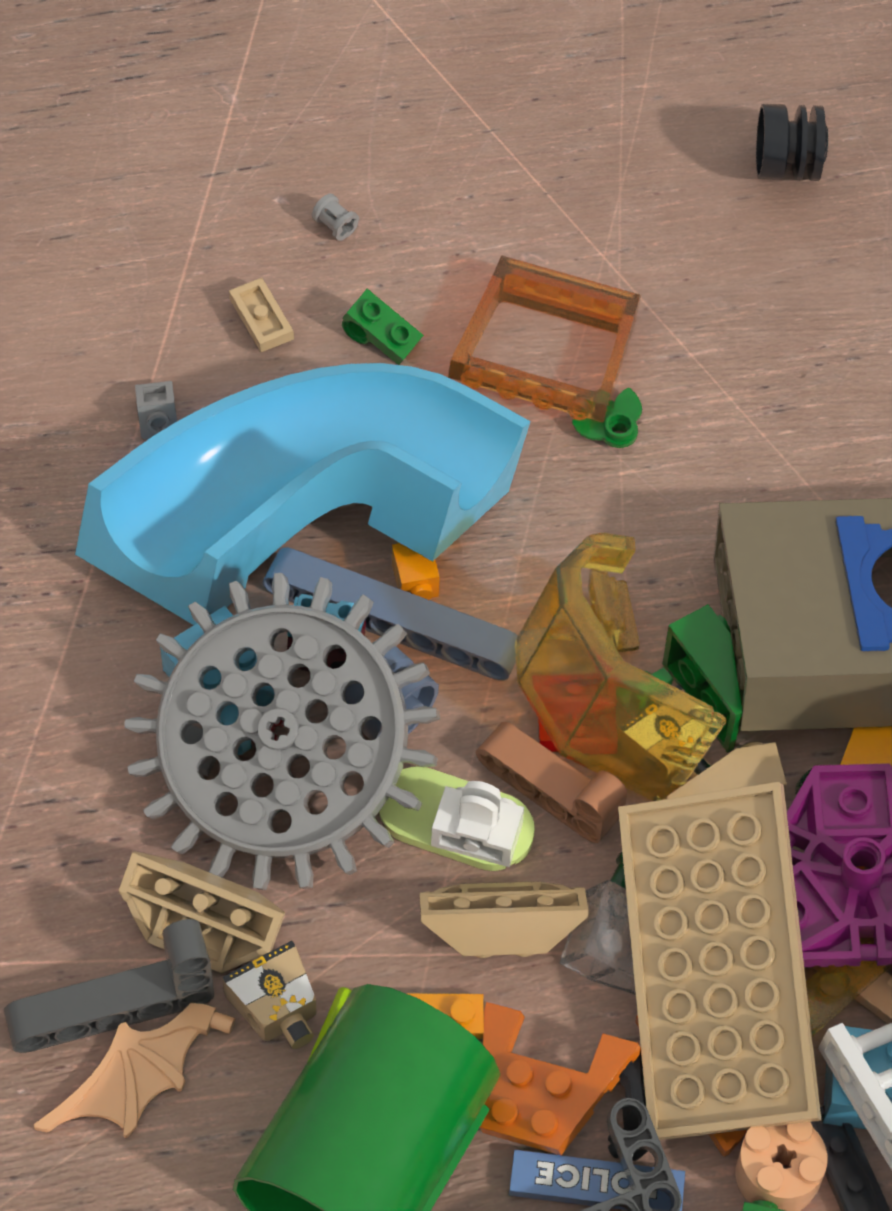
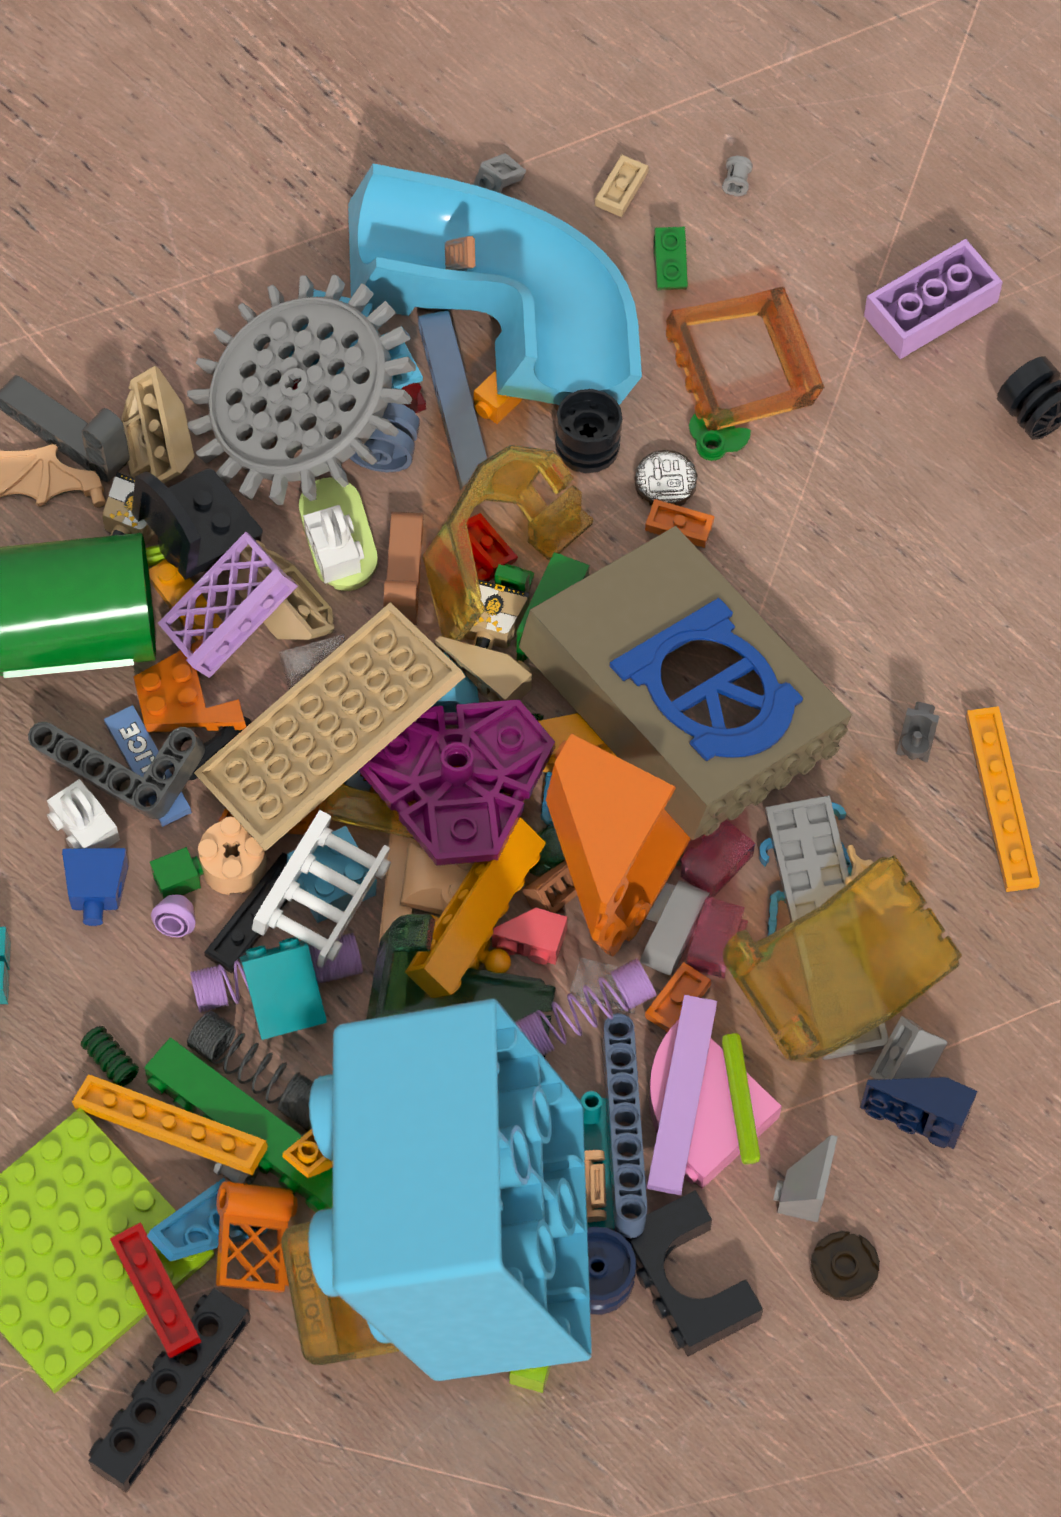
camera: 55 degrees right, 5 degrees up
(242, 489) = (460, 254): none -> nougat slope
(354, 935) = (192, 519): none -> black piece
(515, 958) = (239, 619): none -> lavender fence
(530, 515) = (588, 430): none -> black wheel
(612, 154) = (932, 298): none -> lavender brick
(625, 492) = (666, 477): none -> tile
(688, 513) = (691, 523): none -> orange plate

